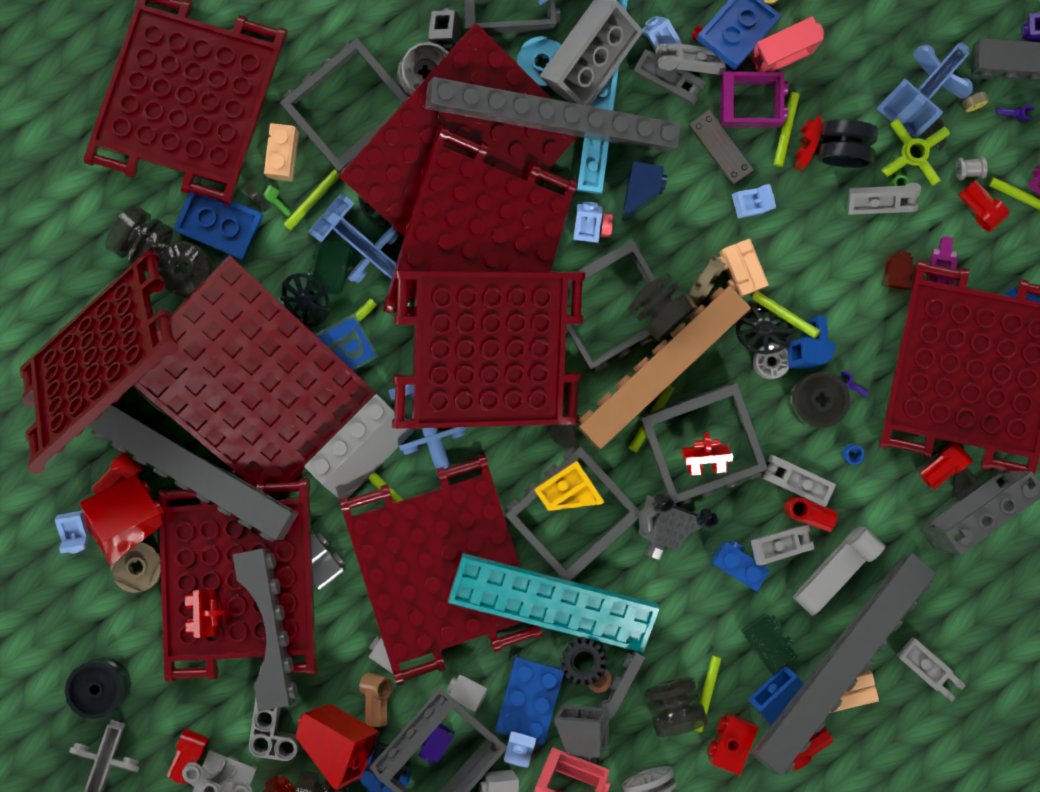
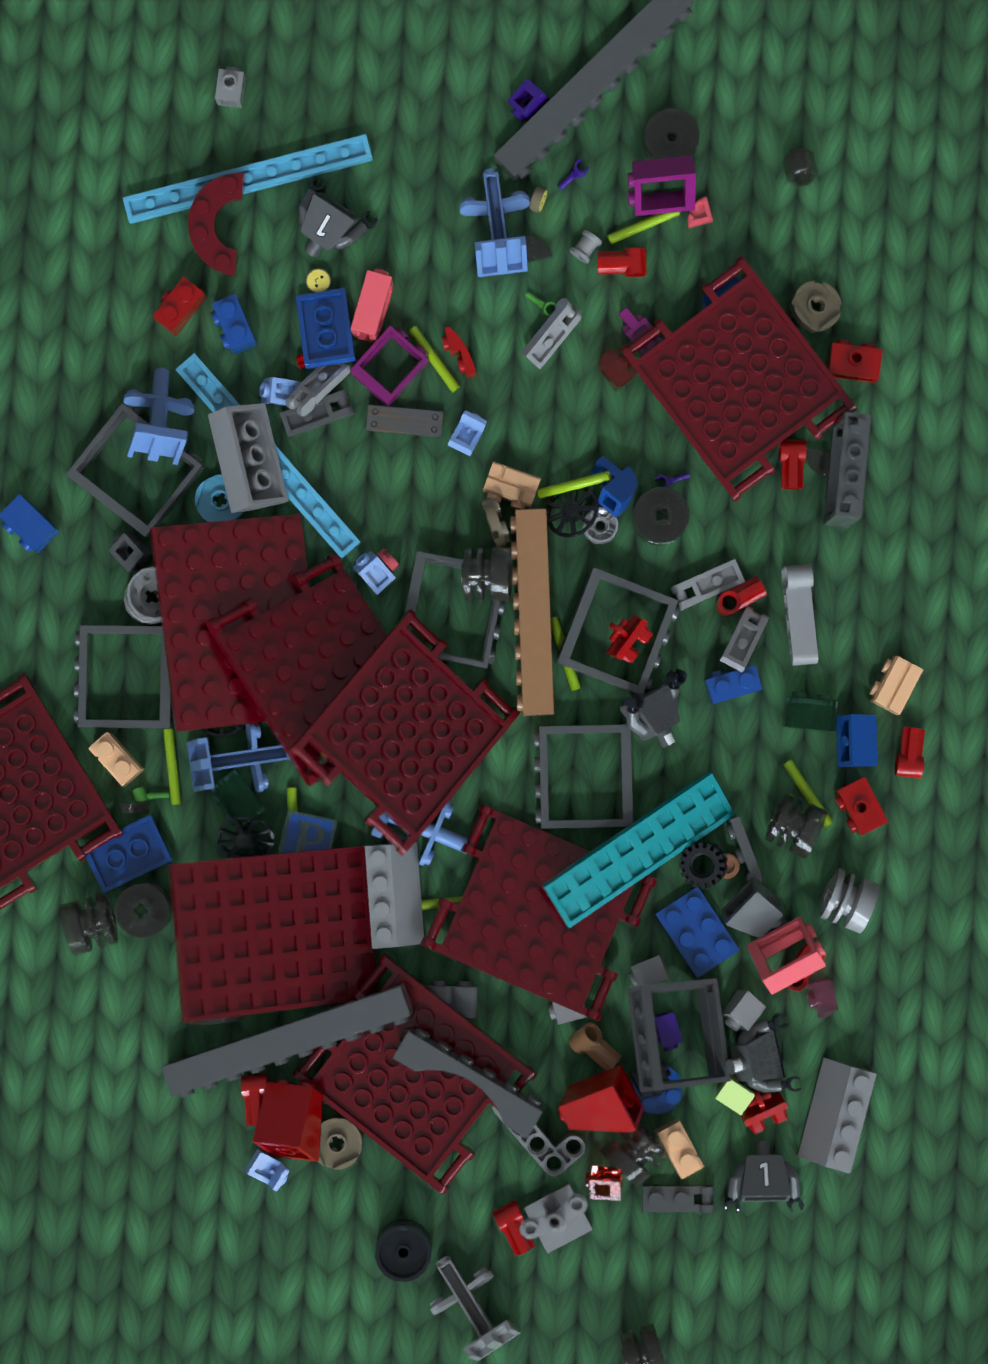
camera: 50 degrees left, 0 degrees up
(95, 360) = (157, 1033): dark red plate -> none
(204, 613) = (419, 1118): red hips -> none
(519, 749) = (726, 971): light blue bracket -> none
(551, 115) = (271, 530): dark grey brick -> none
(563, 436) = (520, 732): clear smoke tile -> none
(568, 490) = (563, 764): yellow wing -> none
(643, 187) = (384, 508): dark blue slope -> none
(843, 664) = (871, 671): dark grey brick -> none
(848, 143) = (486, 325): black wheel -> none
(858, 450) = (722, 520): blue hinge -> none
(924, 147) = (536, 267): lime bar -> none
(928, 667) = (932, 609): light grey hinge -> none

